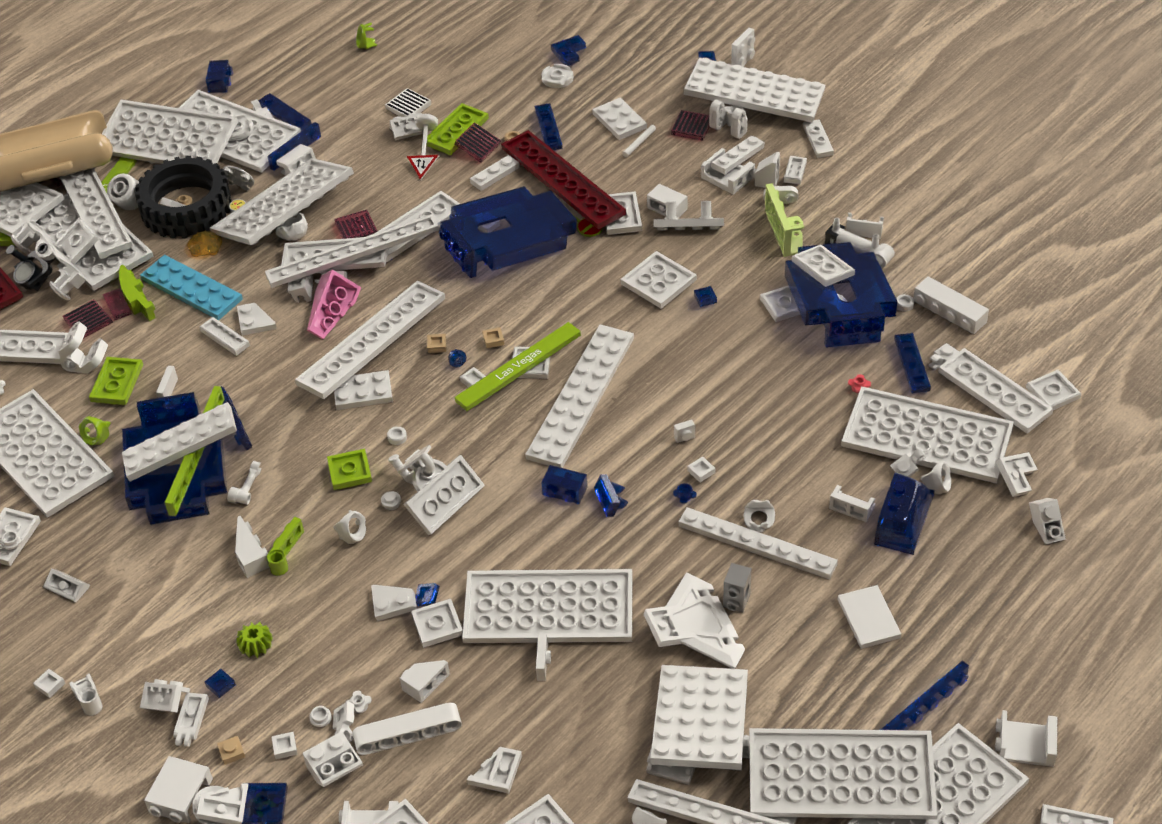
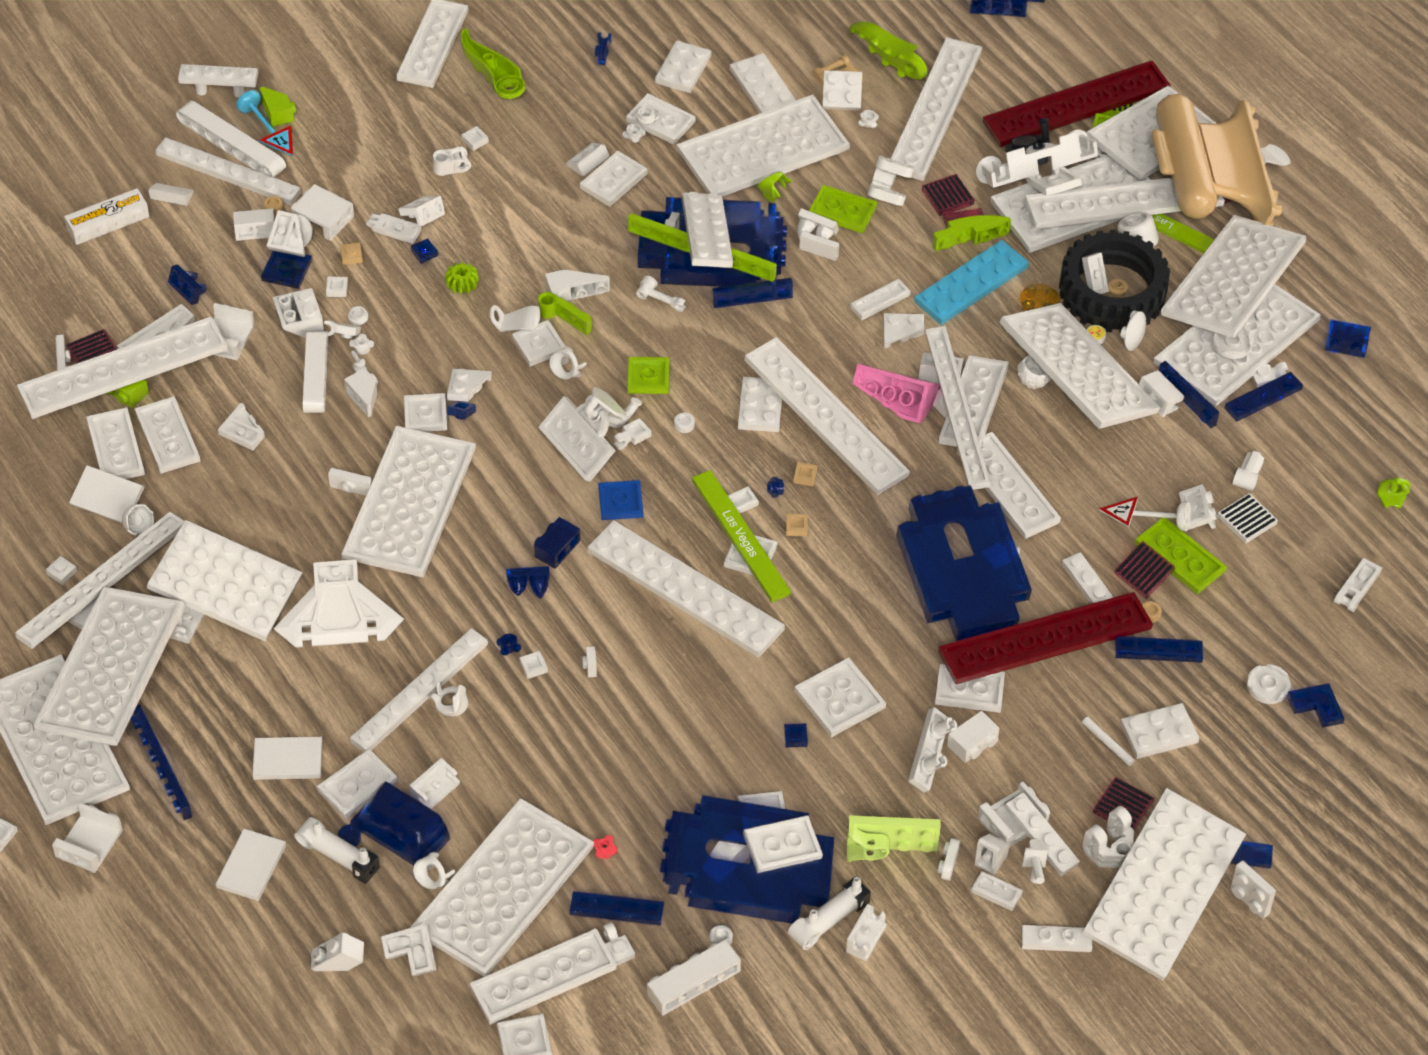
camera: 100 degrees right, 5 degrees up
(27, 554) = (634, 132): none -> white plate
(96, 553) = (613, 178): none -> white plate
(142, 386) = (809, 221): none -> white tile
(160, 486) = (674, 220): none -> white plate
(301, 579) = (522, 319): none -> white piece
(327, 558) = (538, 344): none -> white plate
(355, 225) = (1028, 435): clear pink tile -> none
(368, 107) = (1247, 475): none -> white piece
(385, 695) = (359, 364): none -> white hand
(456, 45) = (1358, 584): none -> white plate
(498, 458) = (620, 500): none -> blue tile
(737, 587) = (356, 644): light grey brick -> none
(758, 154) = (1035, 857): none -> white arm
(872, 560) = (355, 782): none -> white tile
(906, 465) = (461, 848): white plate -> none
(927, 549) = (350, 834): none -> clear blue tile
(948, 547) = (359, 861): none -> white piece
(989, 609) = (251, 864): none -> white tile

